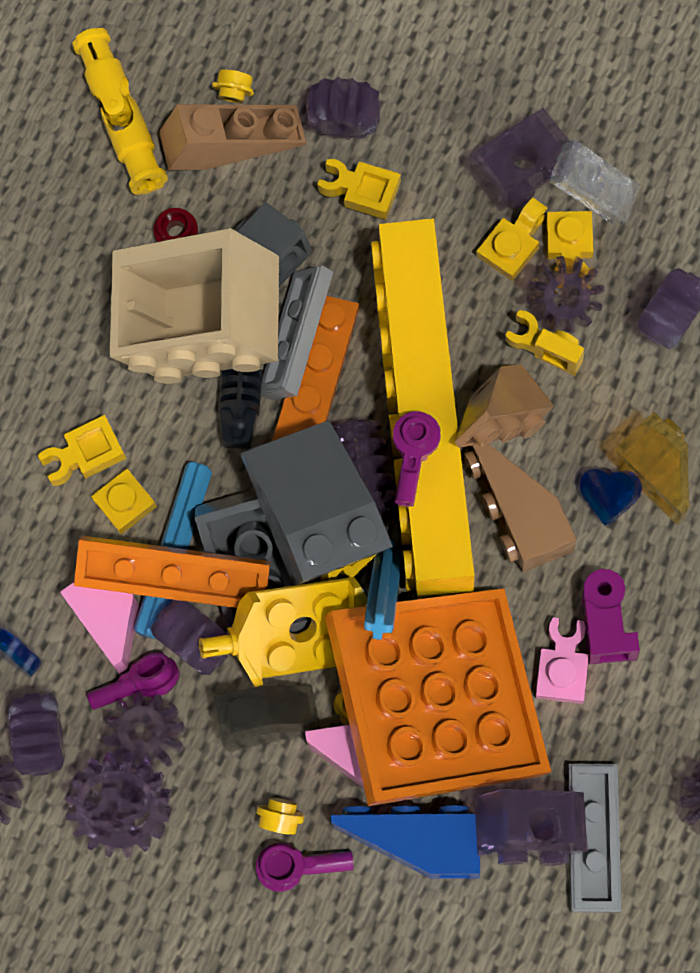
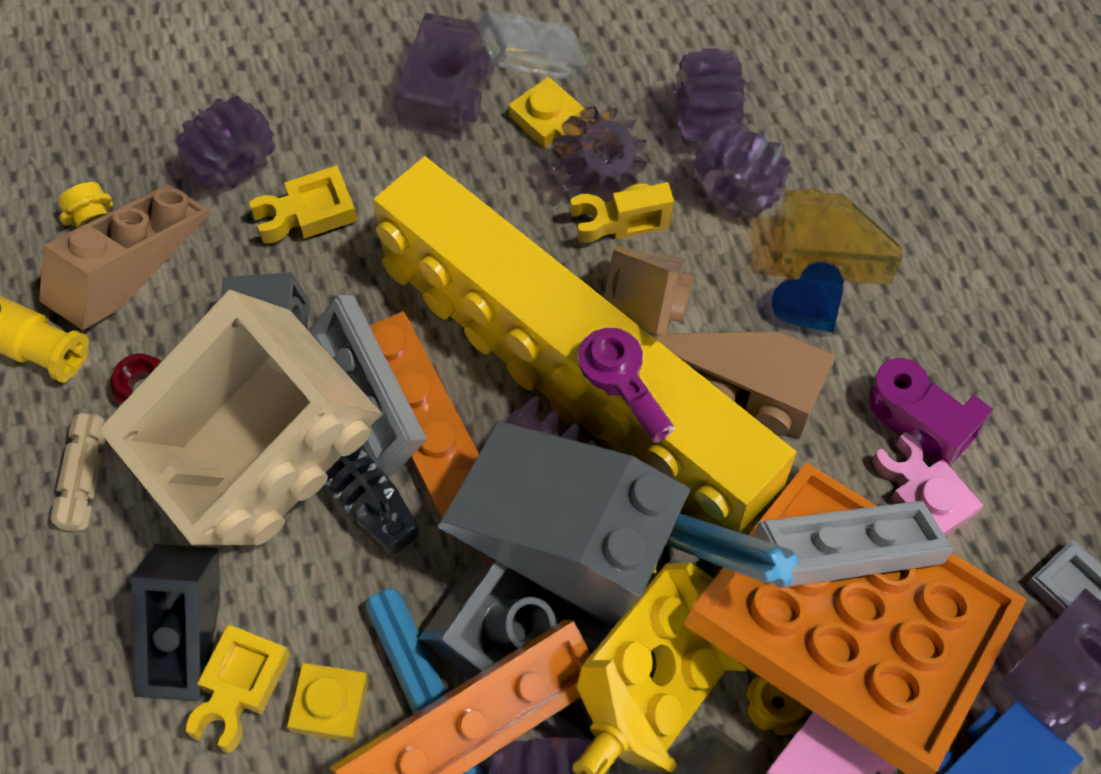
camera: 50 degrees left, 10 degrees down
(80, 388) = (174, 619): none -> black slope
(99, 259) = (78, 473): none -> tan axle
(471, 654) = (858, 541): none -> light grey tile
(512, 245) = (501, 157): yellow plate -> none
(642, 374) = (740, 170): none -> clear purple gear

